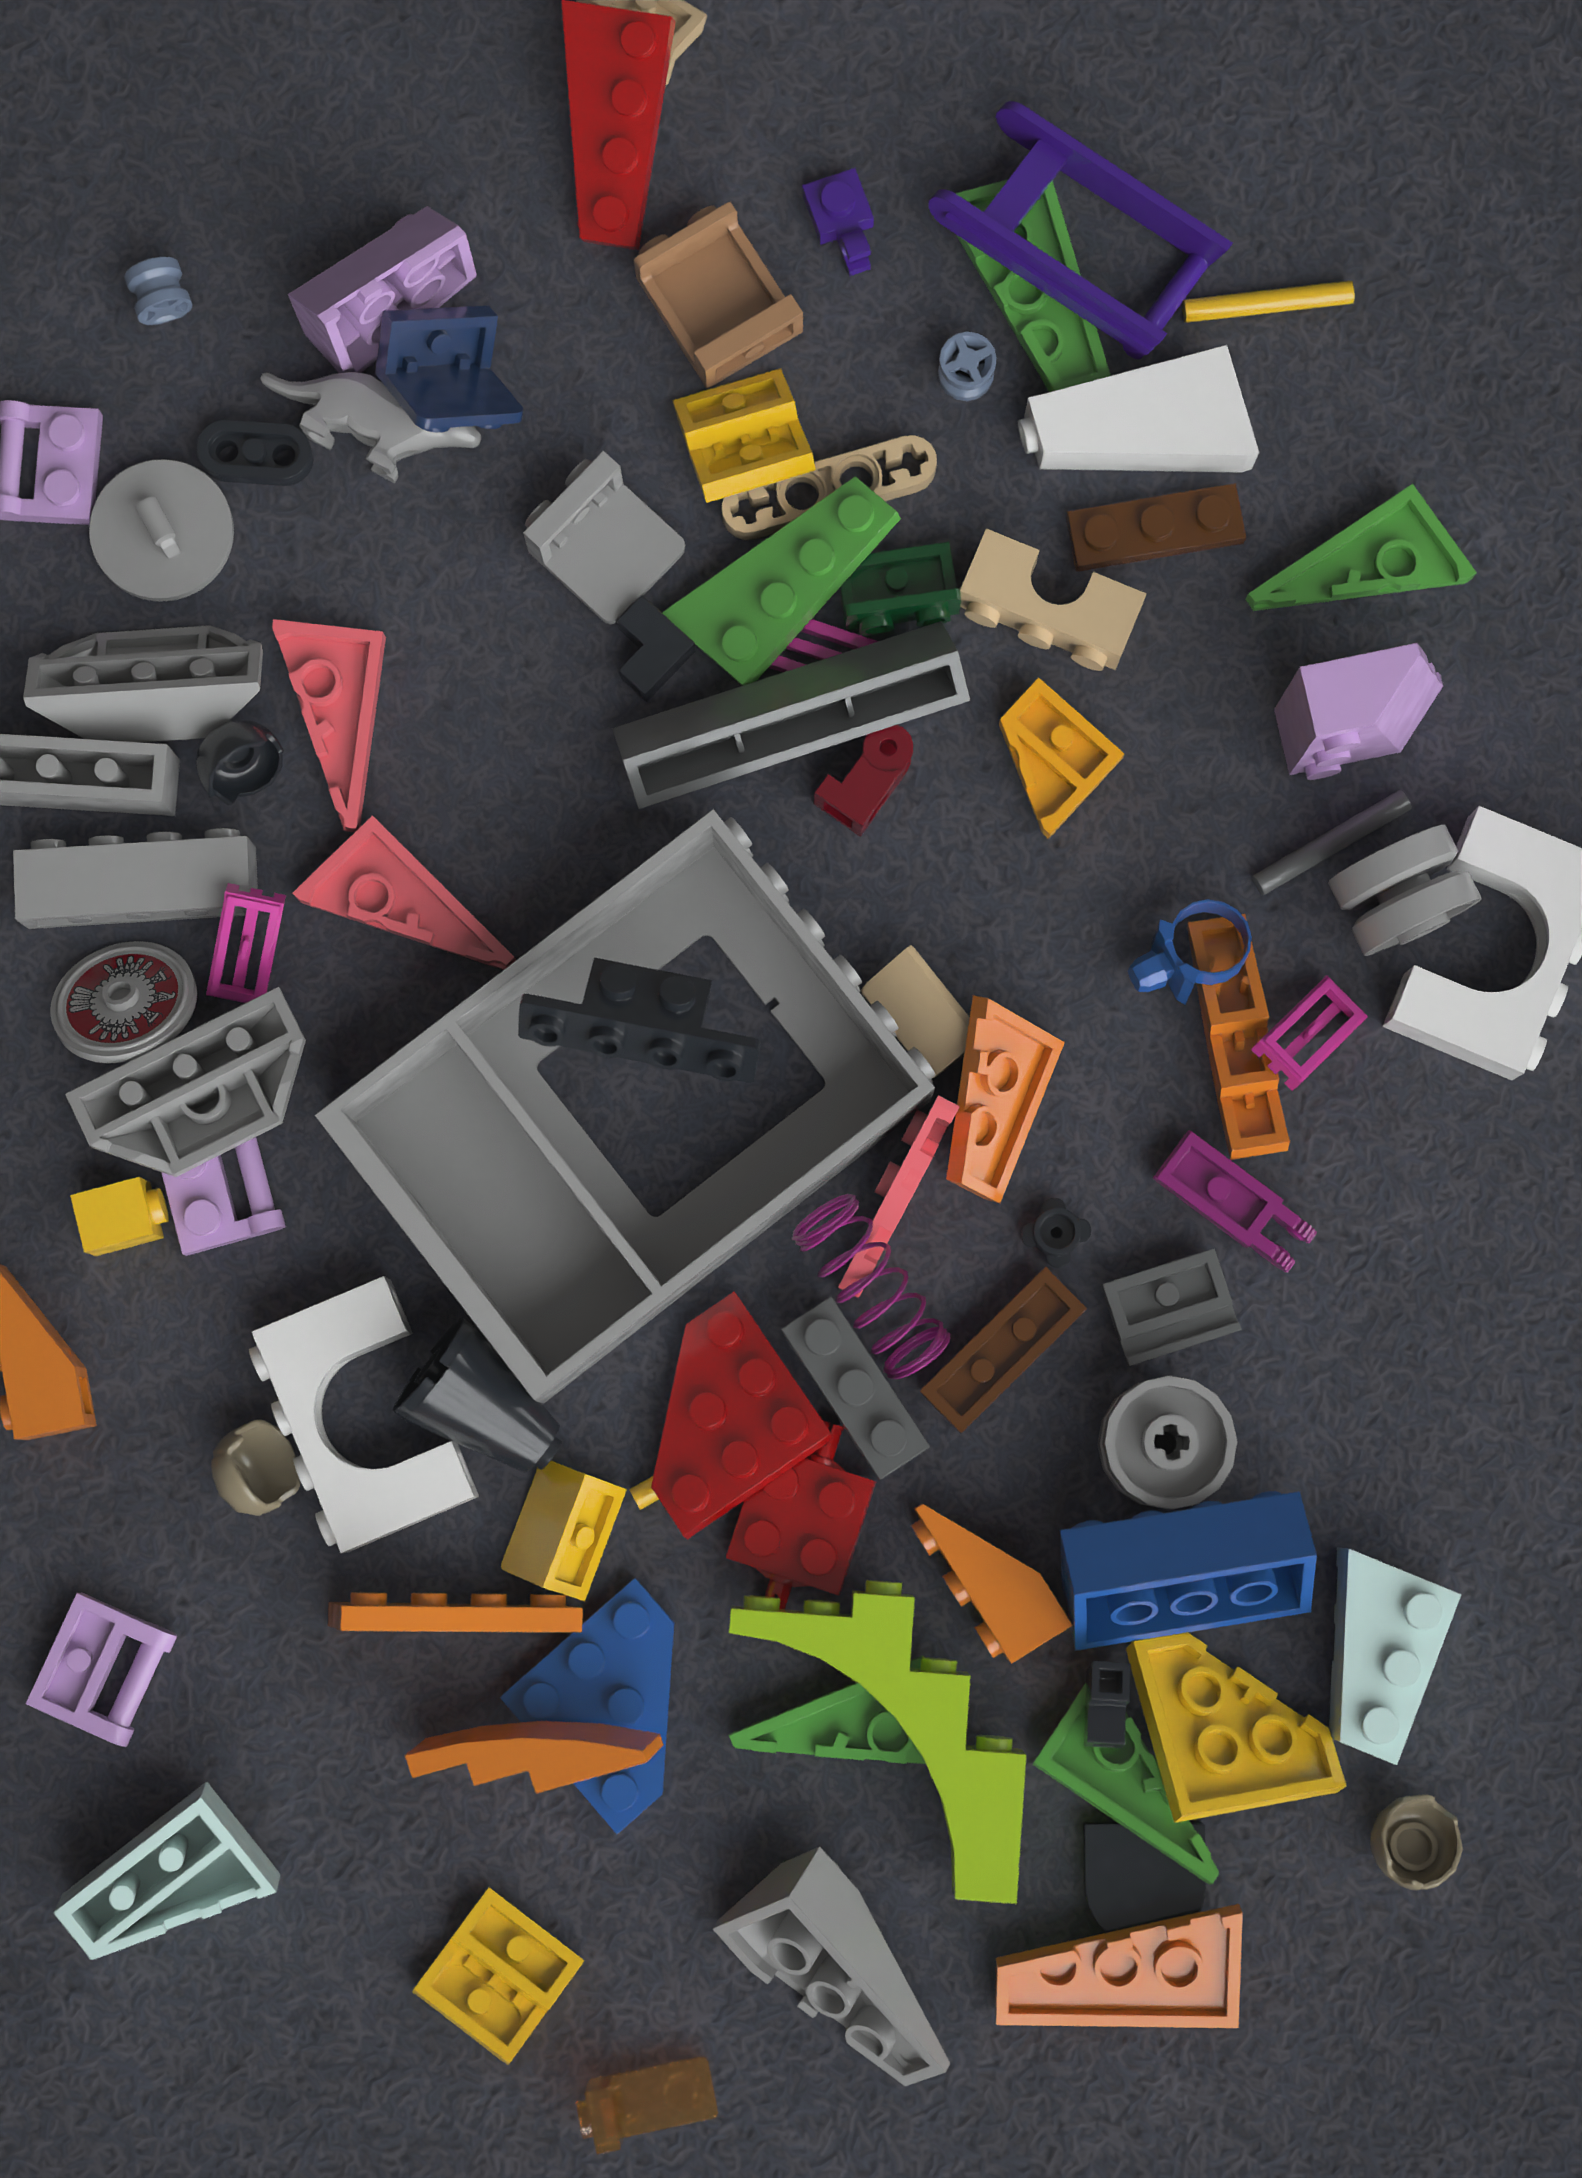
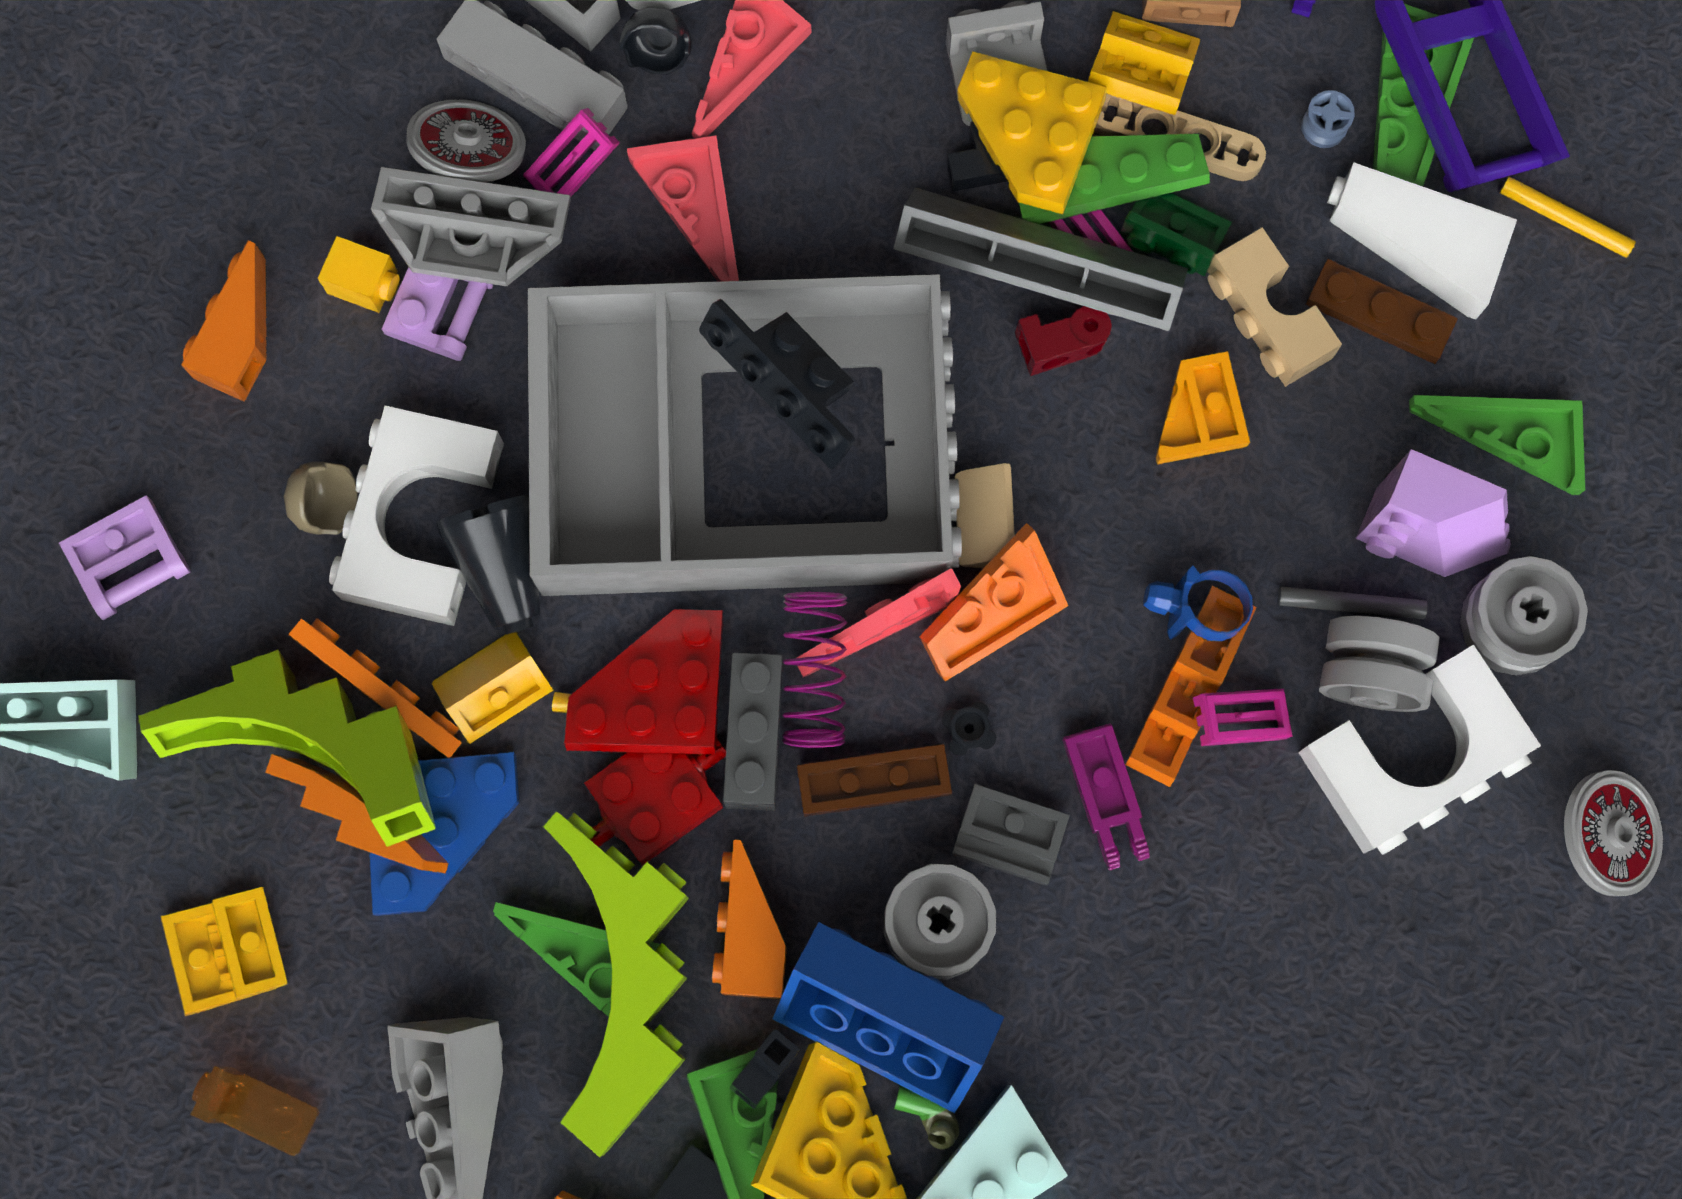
camera: 35 degrees right, 5 degrees down
(429, 1692) = (319, 722): none -> lime arch
(683, 583) = (1032, 125): none -> yellow plate
(1300, 1631) = (938, 1122): none -> arm
(1535, 748) = (1524, 615): none -> light grey wheel

